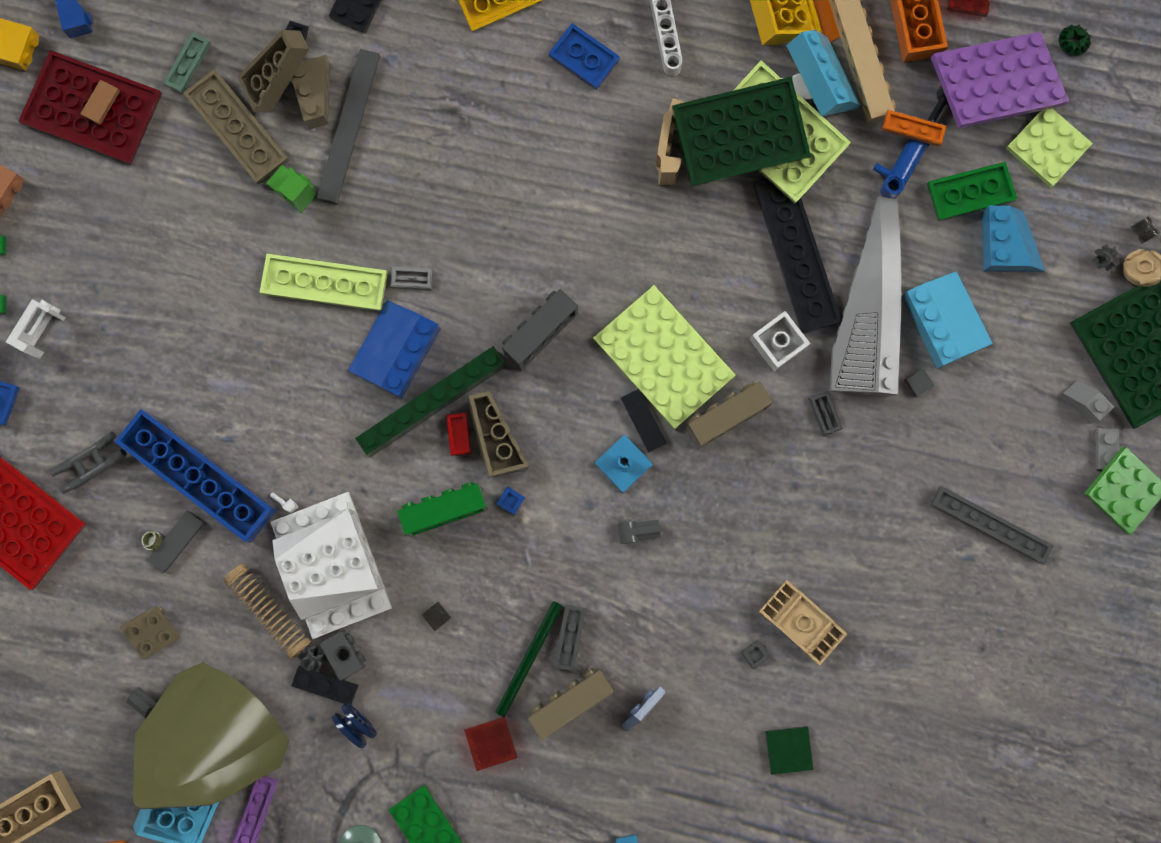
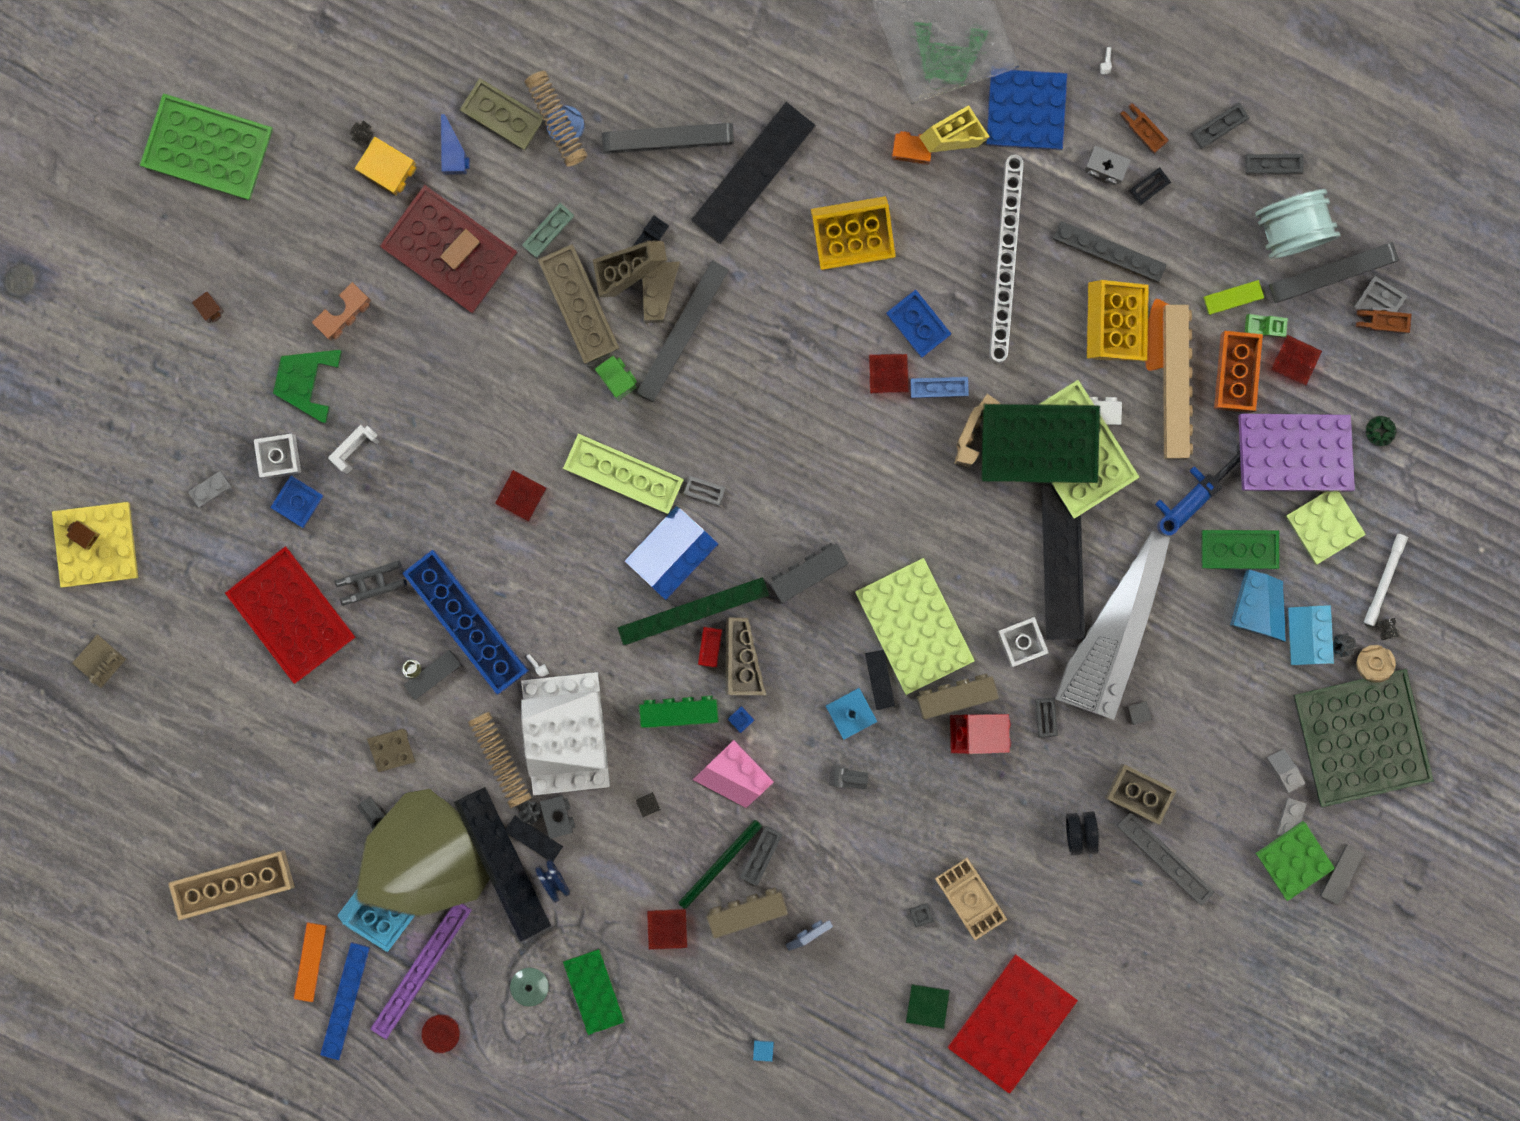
camera: 15 degrees right, 5 degrees up
(224, 332) = (521, 495): none -> clear red plate
(296, 722) = (502, 864): none -> black plate
(519, 560) = (735, 776): none -> bright pink wedge
(567, 112) = (888, 373): none -> clear red plate
(622, 112) = (939, 387): none -> medium blue plate
(762, 447) = (980, 733): none -> slope
(823, 73) = (1134, 405): medium azure slope -> none
(883, 744) = (1012, 1023): none -> red plate
(899, 521) = (1082, 833): none -> black wheel
(914, 128) = (1202, 478): orange tile -> none
(946, 319) = (1182, 662): medium azure slope -> none
(947, 464) = (1140, 794): none -> dark tan brick
(1070, 256) = (1310, 635): none -> medium azure slope
(1128, 151) = (1374, 609): none -> white piece

